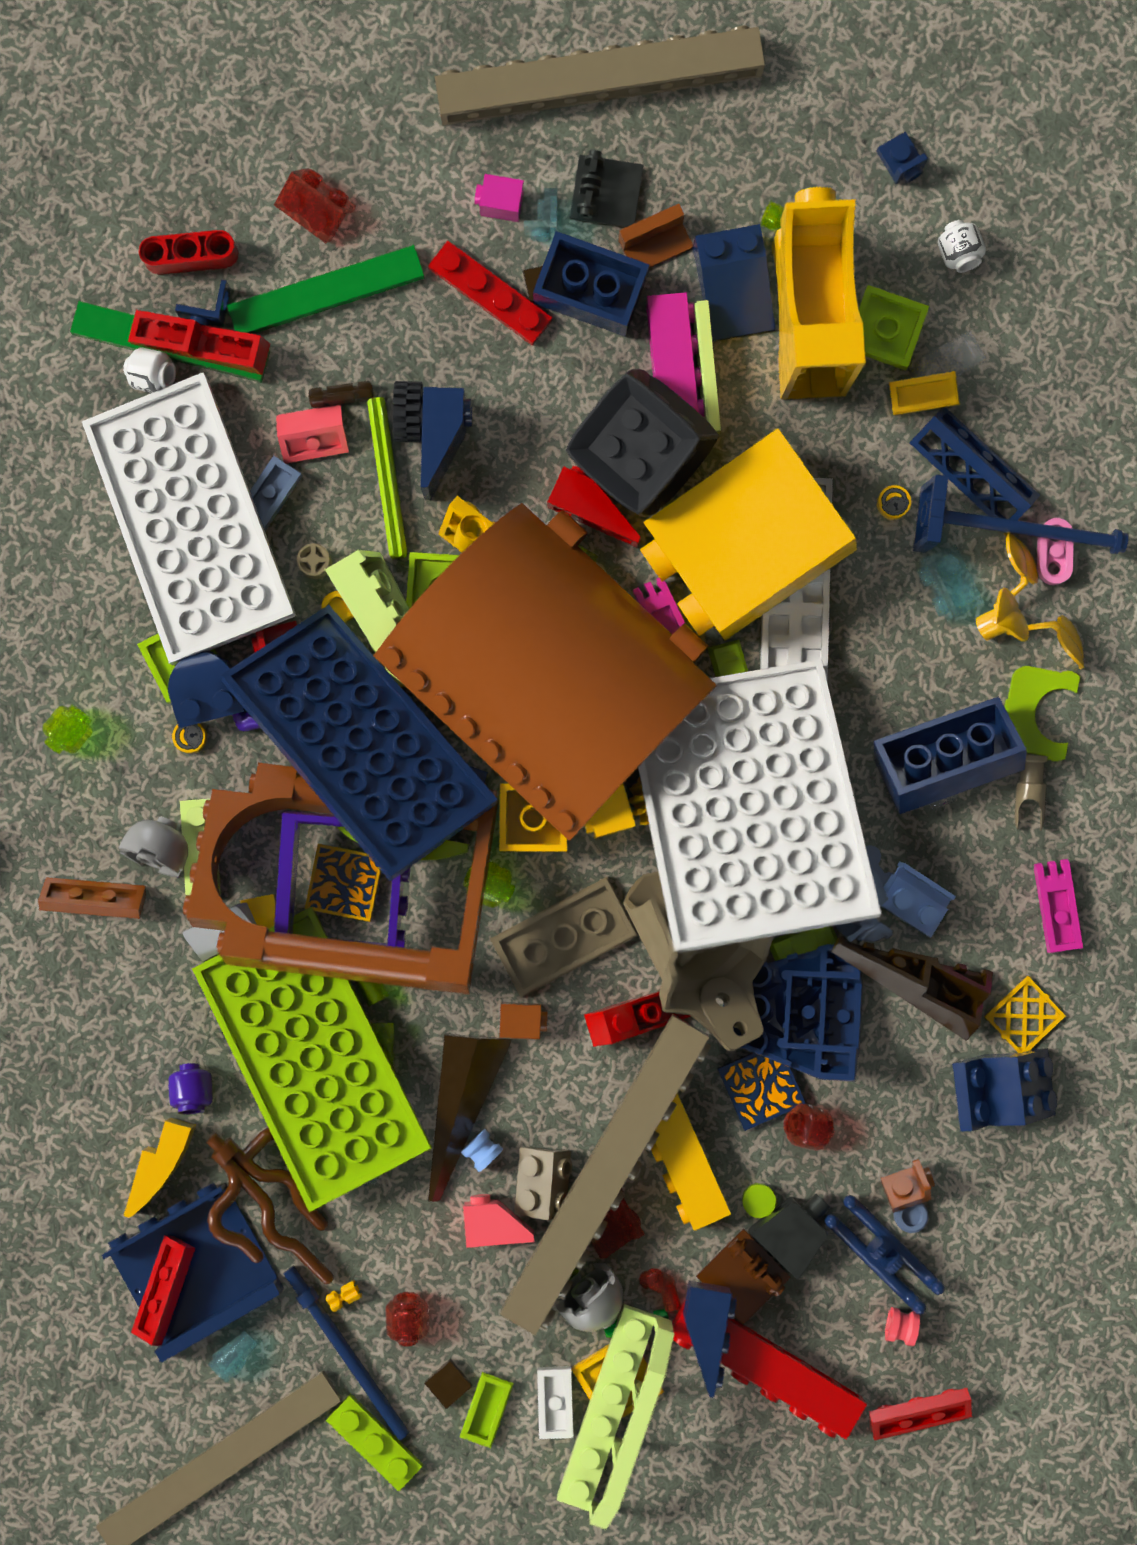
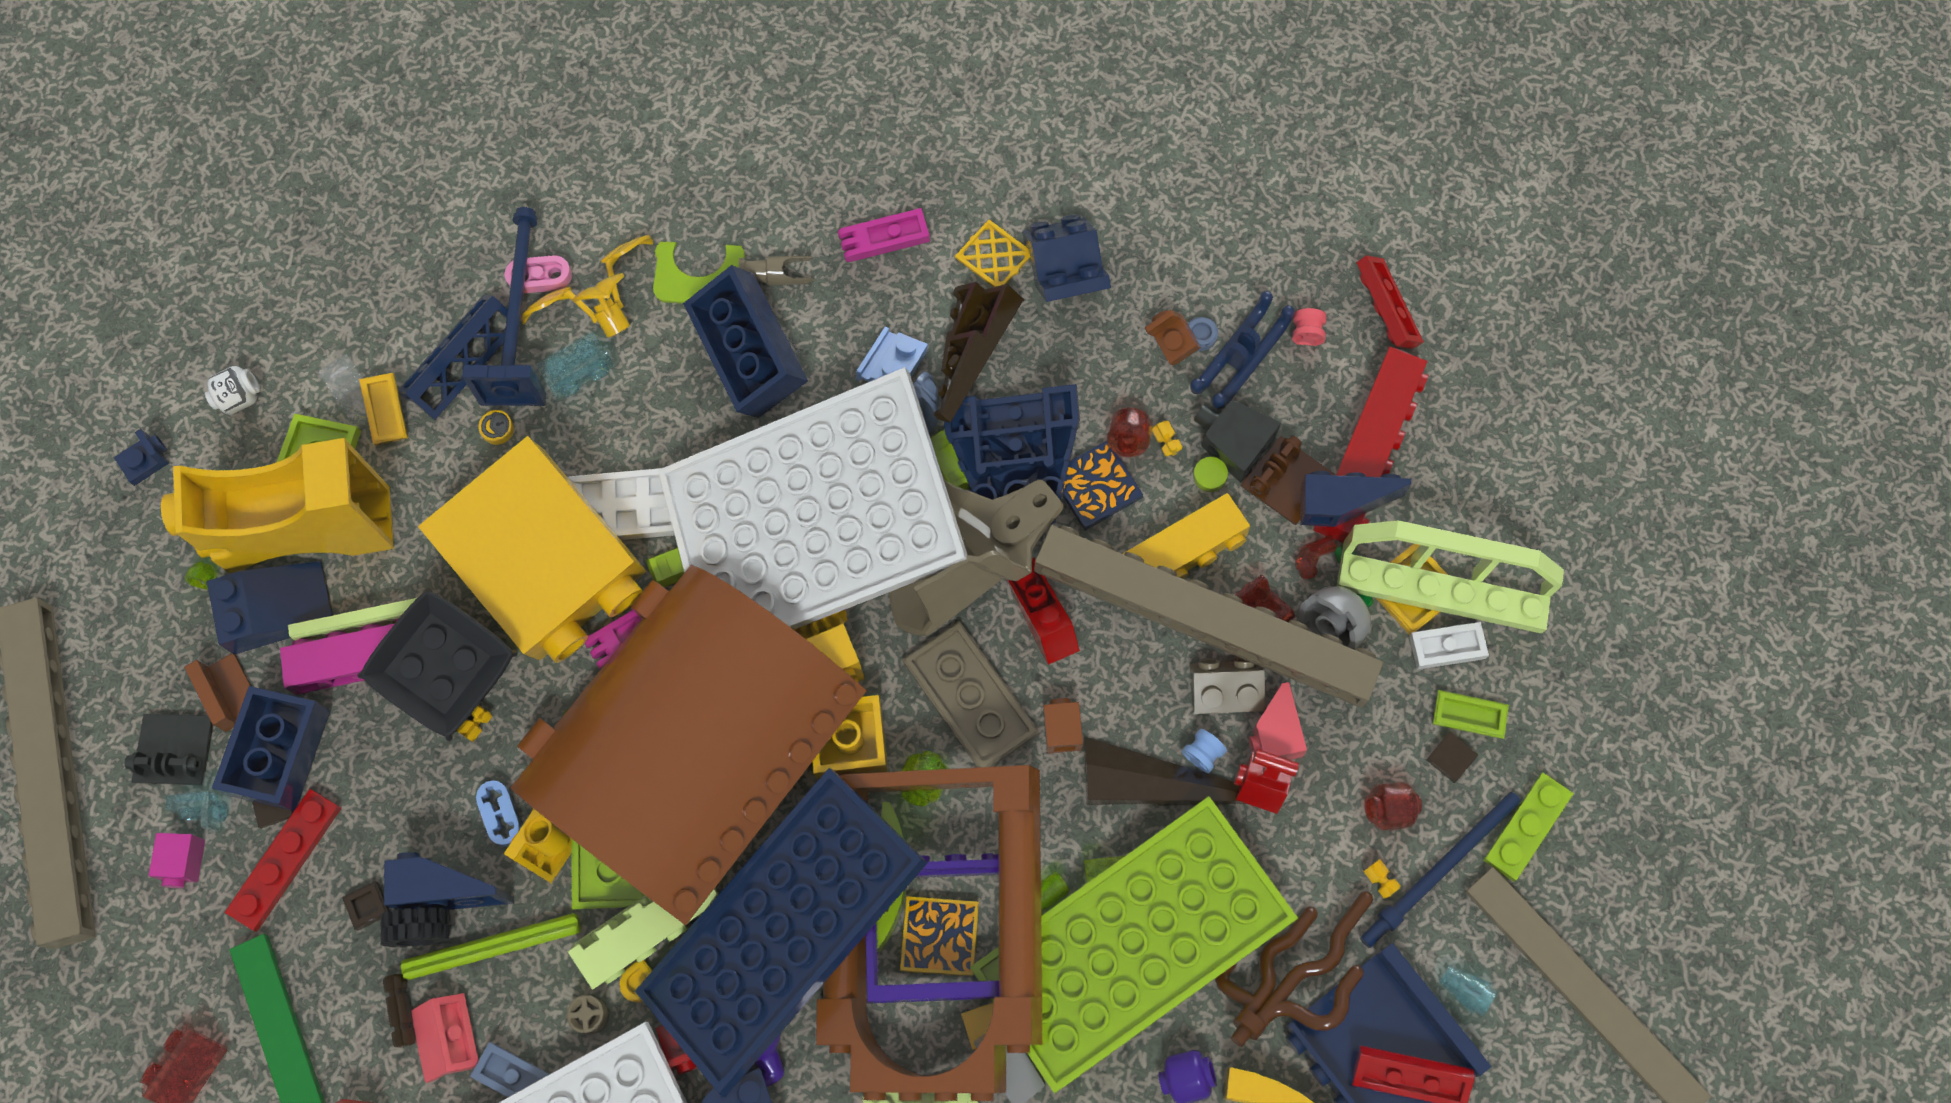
camera: 85 degrees left, 15 degrees down
(438, 367) = (365, 905): none -> dark brown tile
(442, 1202) = (1265, 780): none -> red brick
(505, 482) = (491, 816): none -> light blue beam
(590, 505) = (511, 720): red slope -> none
(806, 1161) = (1163, 433): none -> yellow piece

